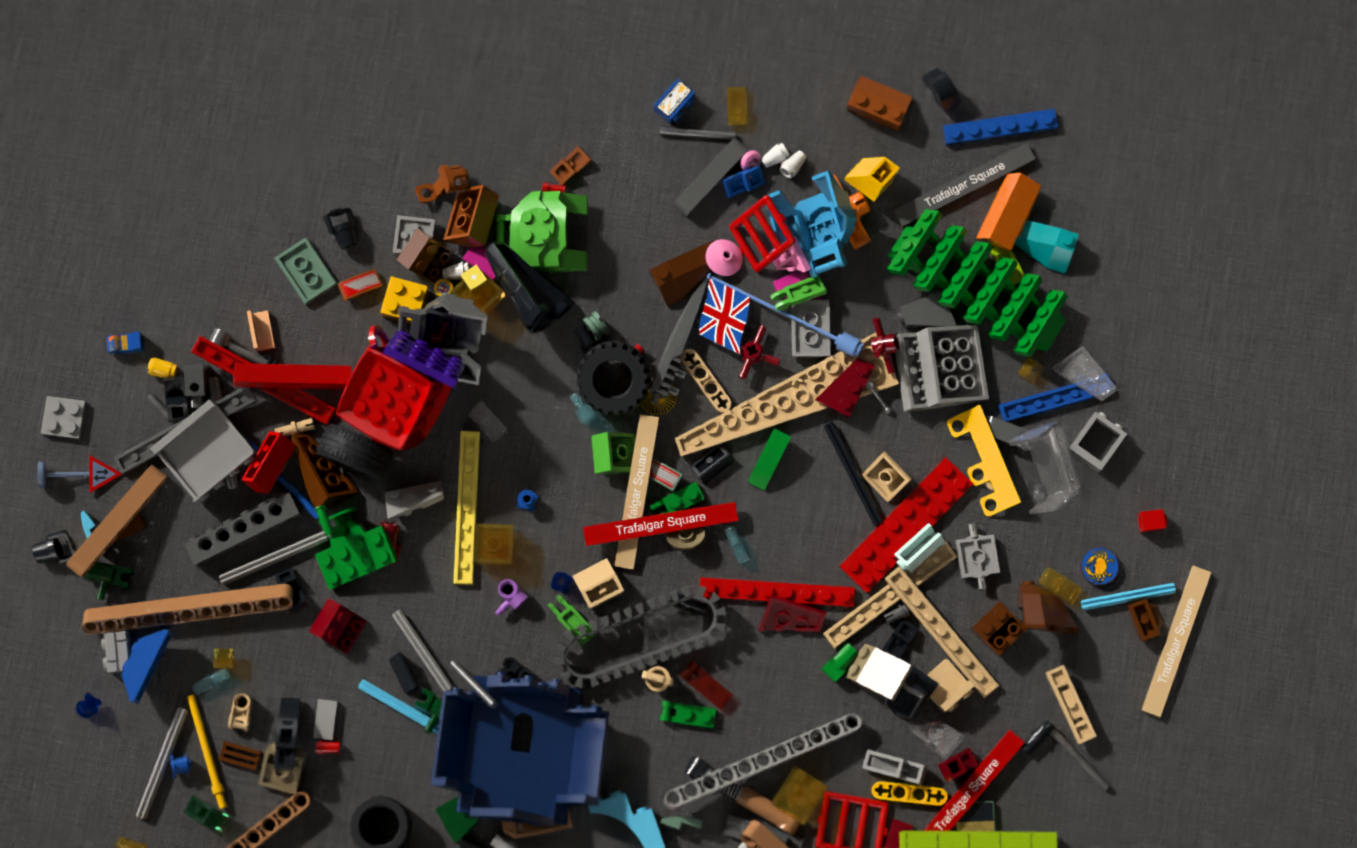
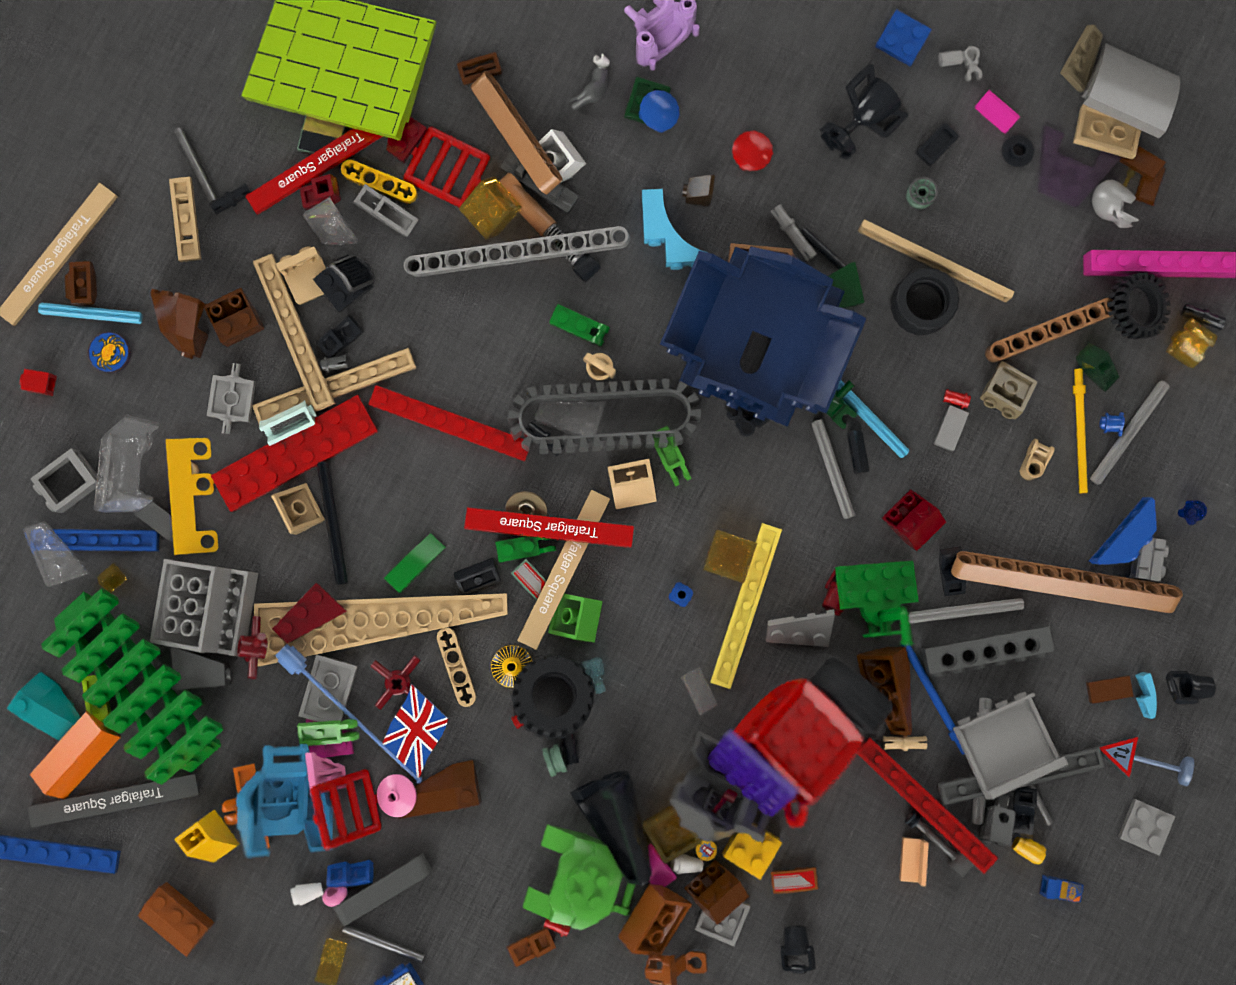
camera: 165 degrees left, 5 degrees up
(108, 574) = (1143, 645): dark green piece -> none
(116, 521) = (1120, 696): medium nougat beam -> none
(211, 681) = (1058, 501): clear light blue axle -> none
(223, 658) = (1040, 520): clear yellow slope -> none
(256, 760) = (1063, 426): reddish brown tile -> none
(268, 462) = (944, 712): red brick -> none
(287, 734) = (997, 421): black slope -> none
(290, 376) = (897, 800): red brick -> none
(305, 271) = (848, 912): sand green tile -> none
(473, 684) = (791, 415): flat silver bar -> none
(474, 278) = (671, 850): light yellow tile -> none
(513, 600) = (725, 493): medium lavender piece -> none
(563, 588) = (670, 505): clear blue brick -> none
(669, 361) = (488, 697): dark grey piece -> none
(675, 822) = (623, 220): sand green slope -> none
(706, 685) = (551, 348): clear red plate -> none
(736, 545) = (476, 483): clear light blue axle -> none
(790, 615) = (443, 394): dark red wing -> none
(792, 165) = (290, 877): white cone -> none
(837, 666) = (412, 328): green piece -> none
(869, 385) = (283, 609): flat silver hinge -> none
(879, 672) = (368, 304): slope -> none
(942, 88) = (99, 915): black brick -> none
(1060, 585) = (156, 344): clear yellow slope -> none

